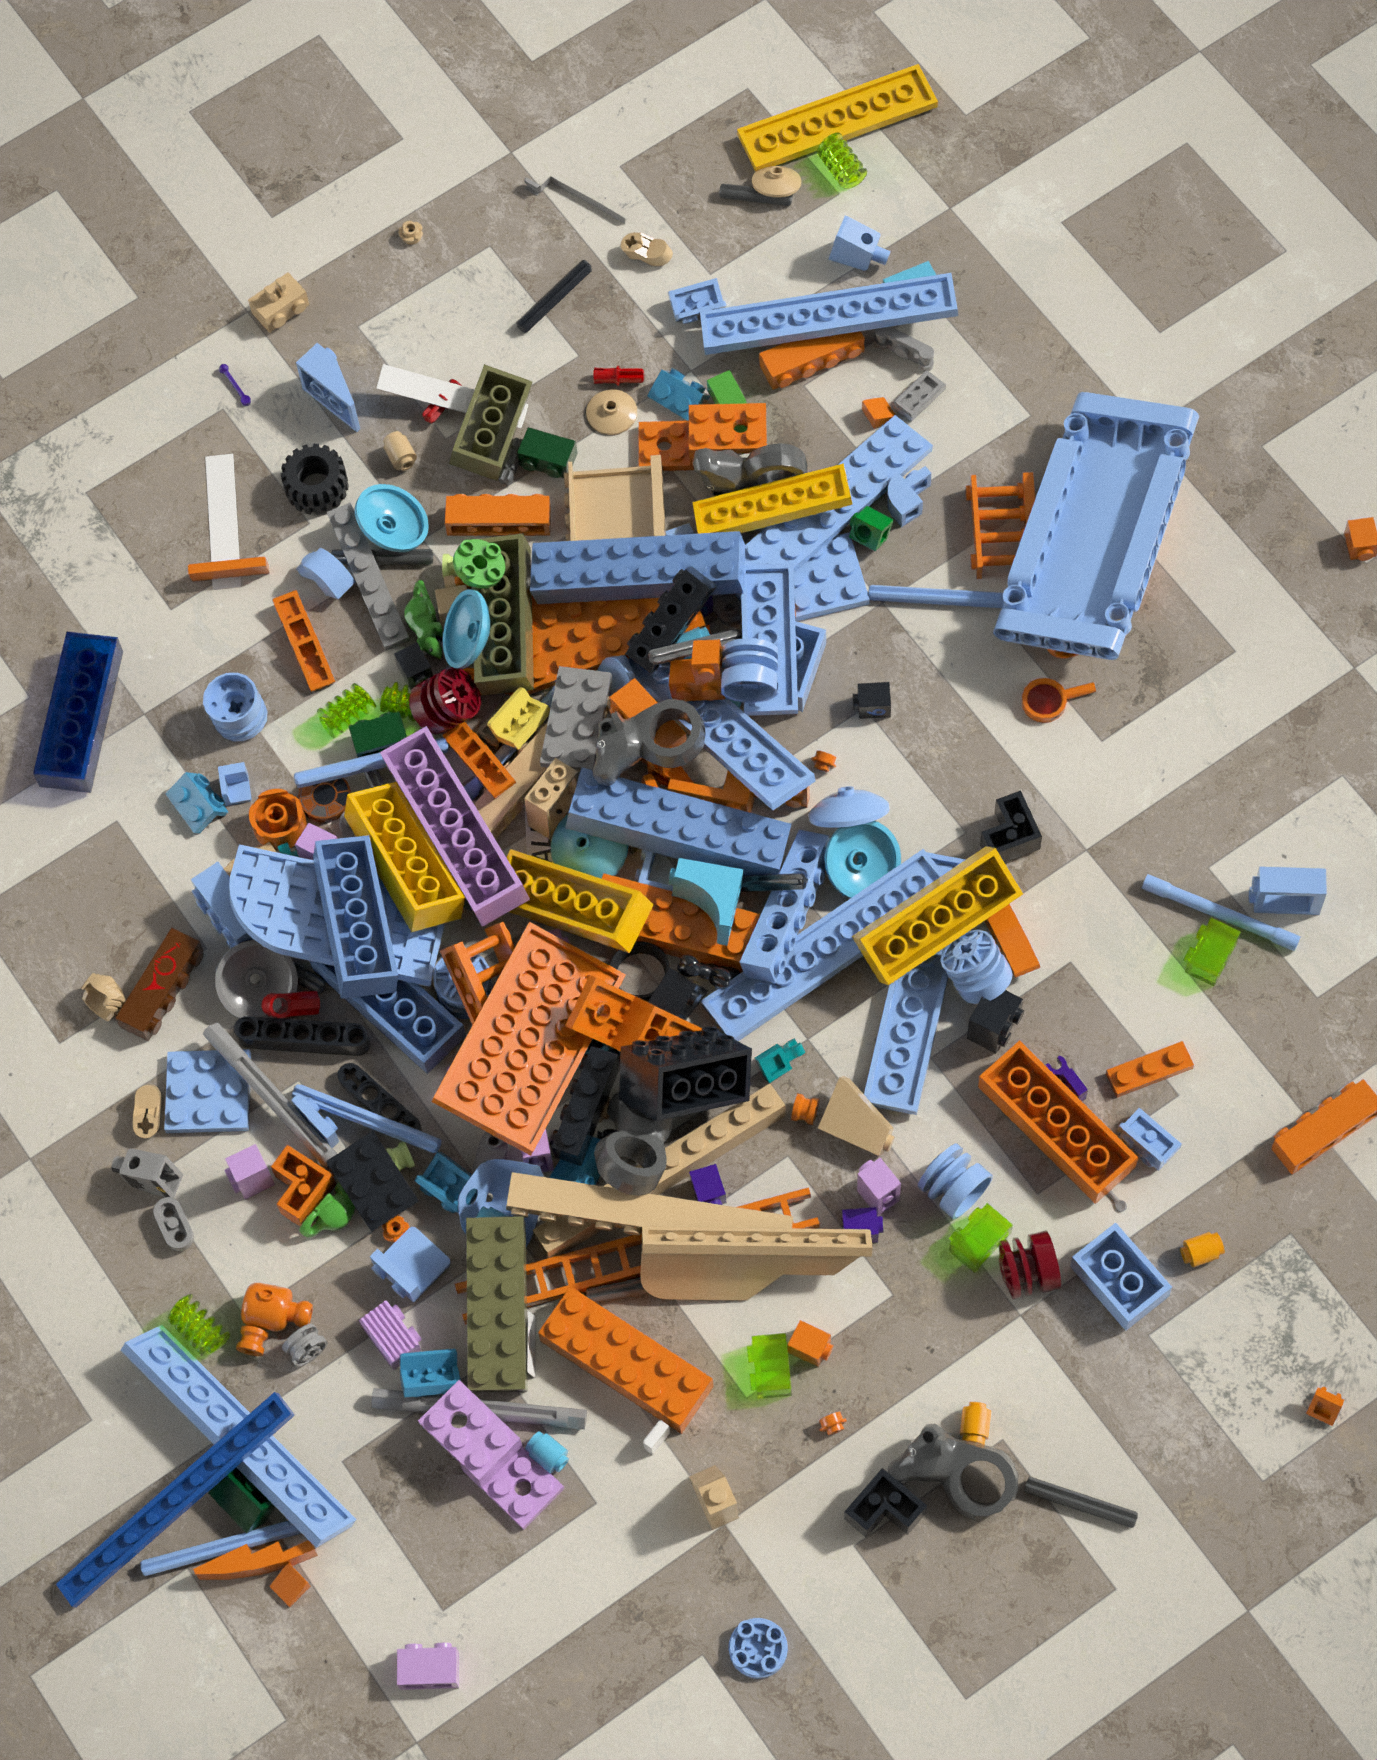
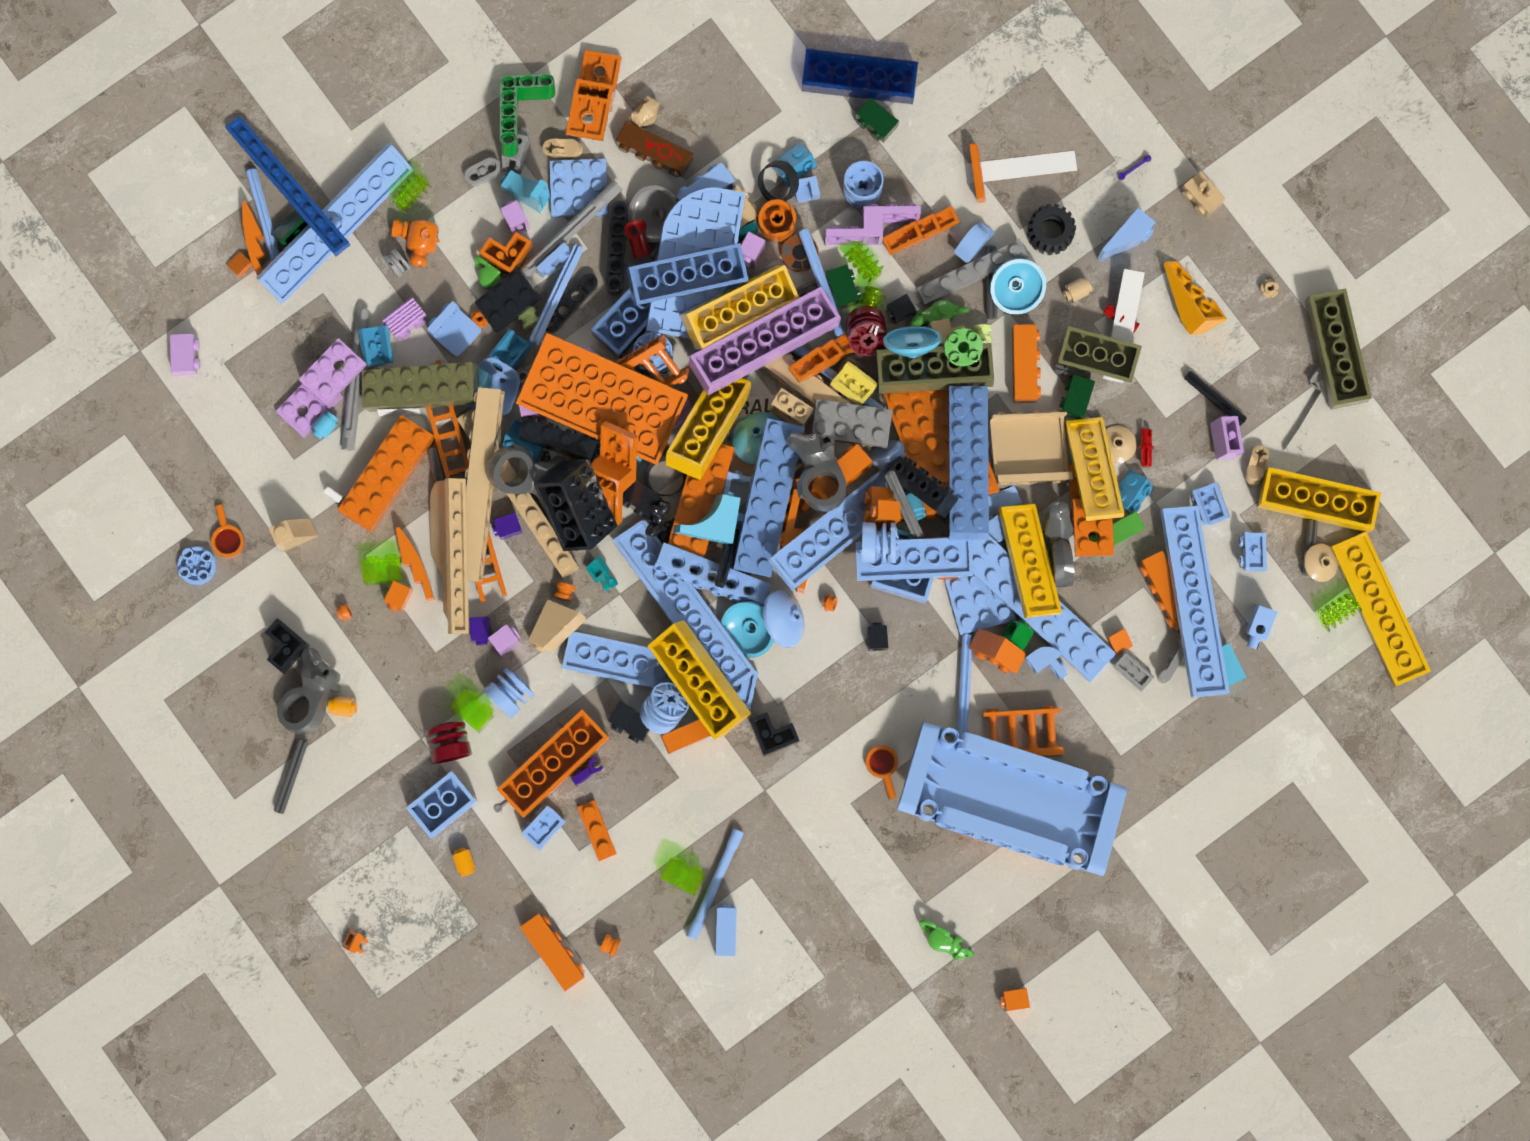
camera: 80 degrees right, 15 degrees up
(60, 1179) = (516, 89): none -> green beam
(73, 1061) = (593, 95): none -> orange bracket
(142, 693) = (876, 120): none -> dark green brick
(198, 809) = (790, 172): none -> black tyre
(207, 1159) = (527, 191): none -> medium azure arch
(293, 695) = (872, 224): none -> lavender bracket
(438, 312) = (1193, 307): none -> light orange wedge
(497, 152) = (1338, 349): none -> olive brick
(609, 278) = (1227, 437): none -> lavender brick
(648, 425) = (1094, 469): none -> yellow plate
(695, 177) = (1319, 500): none -> yellow brick
(719, 1601) = (227, 539): none -> piece
(755, 1320) = (411, 558): none -> orange slope
(761, 255) = (1253, 552): none -> light blue bracket
(890, 549) = (997, 651): none -> orange brick
(1287, 623) = (940, 940): none -> bright green animal
(1313, 1048) = (610, 945): none -> orange wheel

